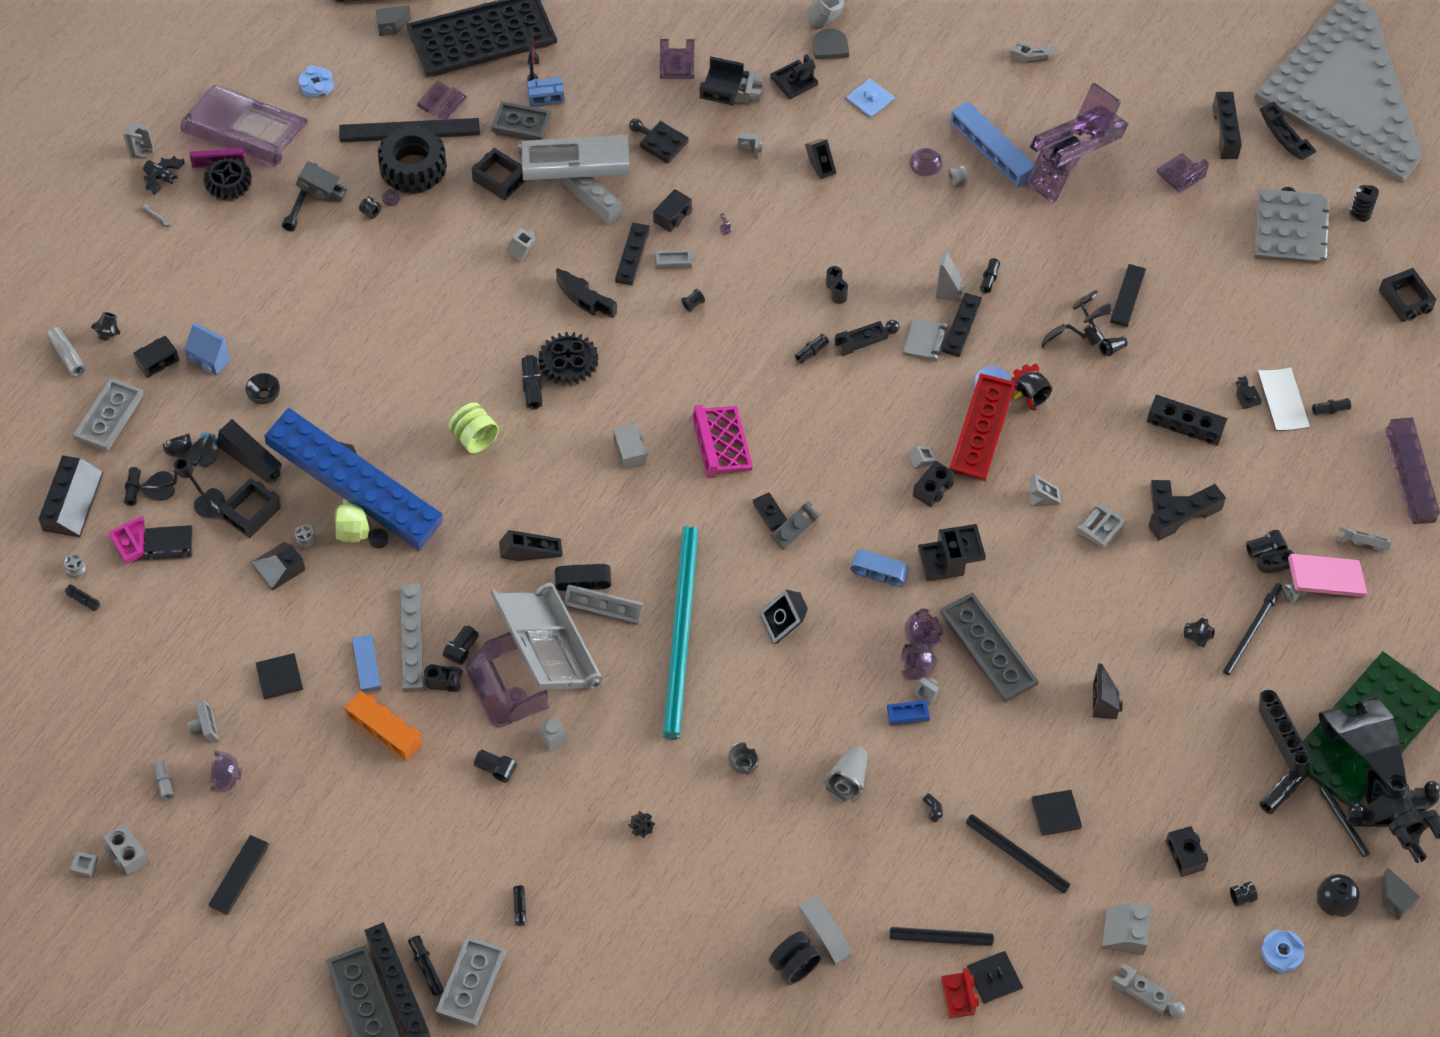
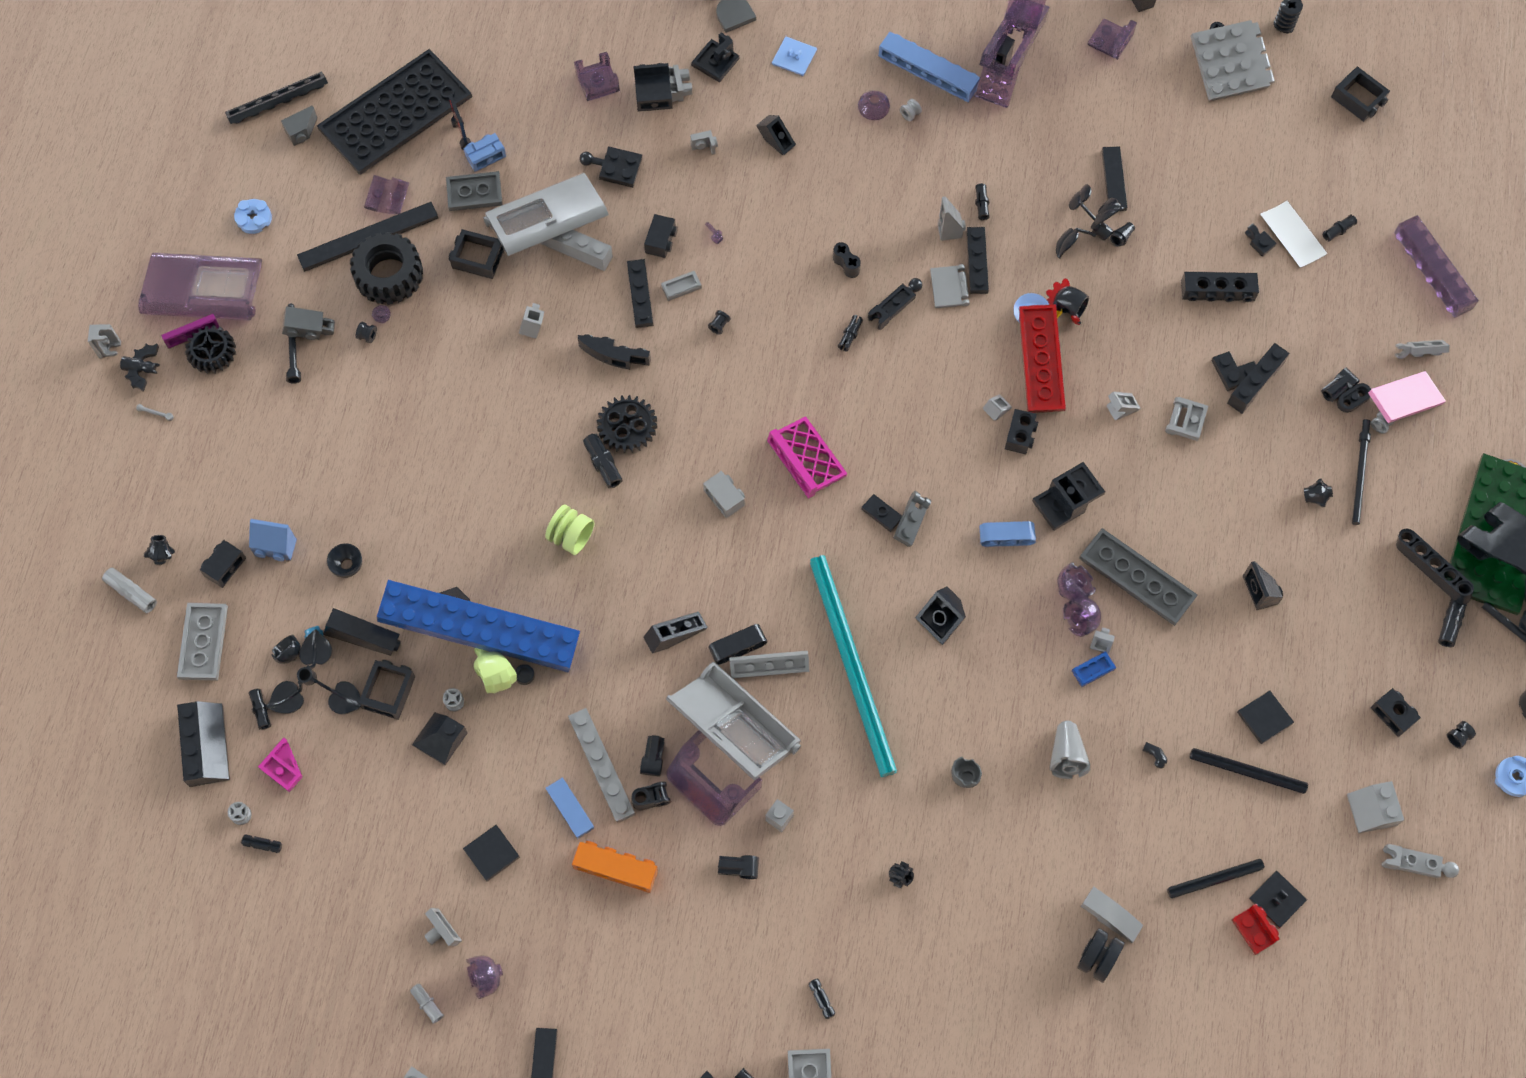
camera: 20 degrees left, 10 degrees up
(168, 542) = (320, 753): black piece -> none

